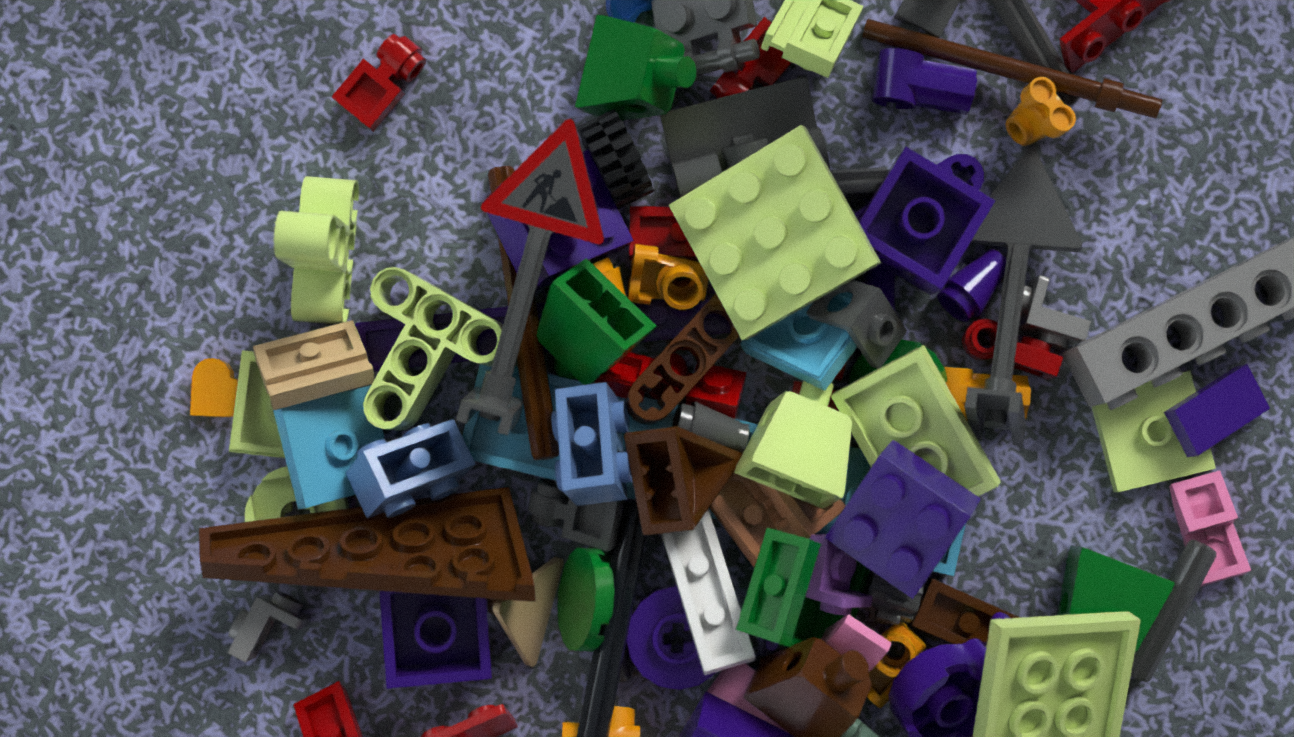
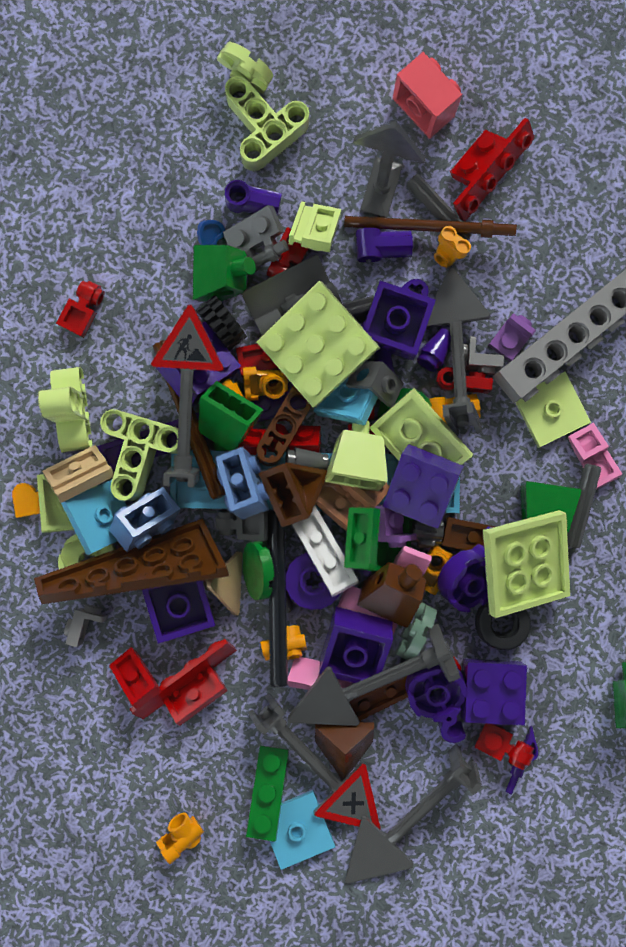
camera: 15 degrees left, 0 degrees up
(1111, 290) = (512, 336): none -> medium lavender bracket
(1217, 410) = (584, 389): dark purple tile -> none

